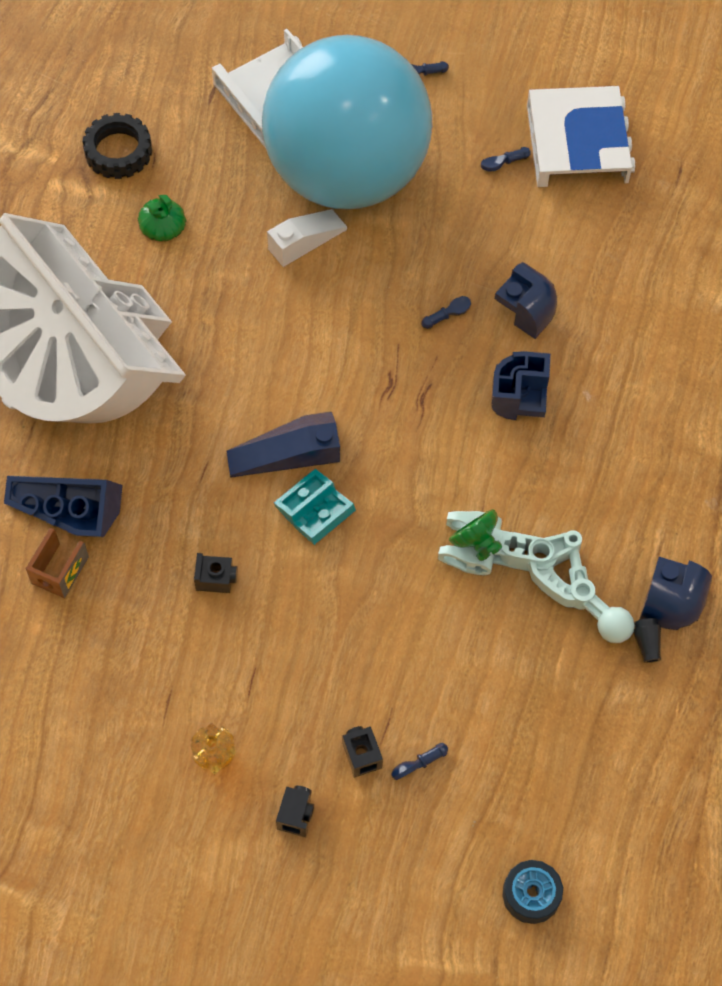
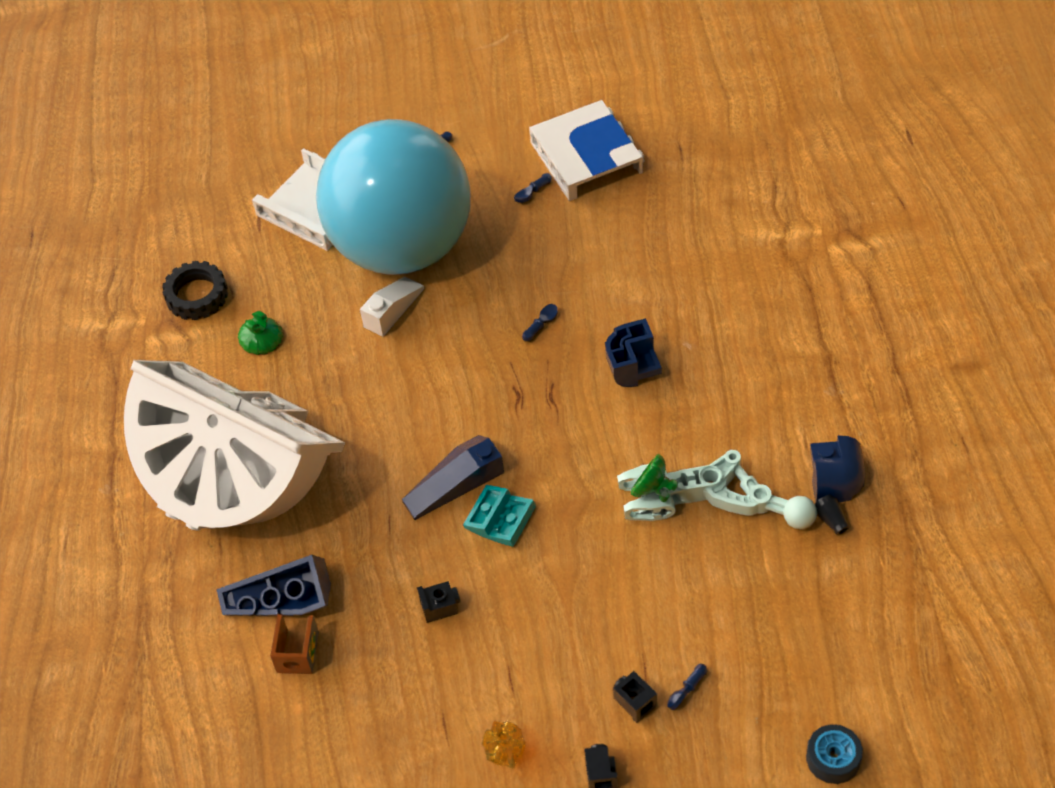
camera: 15 degrees left, 10 degrees down
(530, 297) = (607, 284): dark blue brick -> none

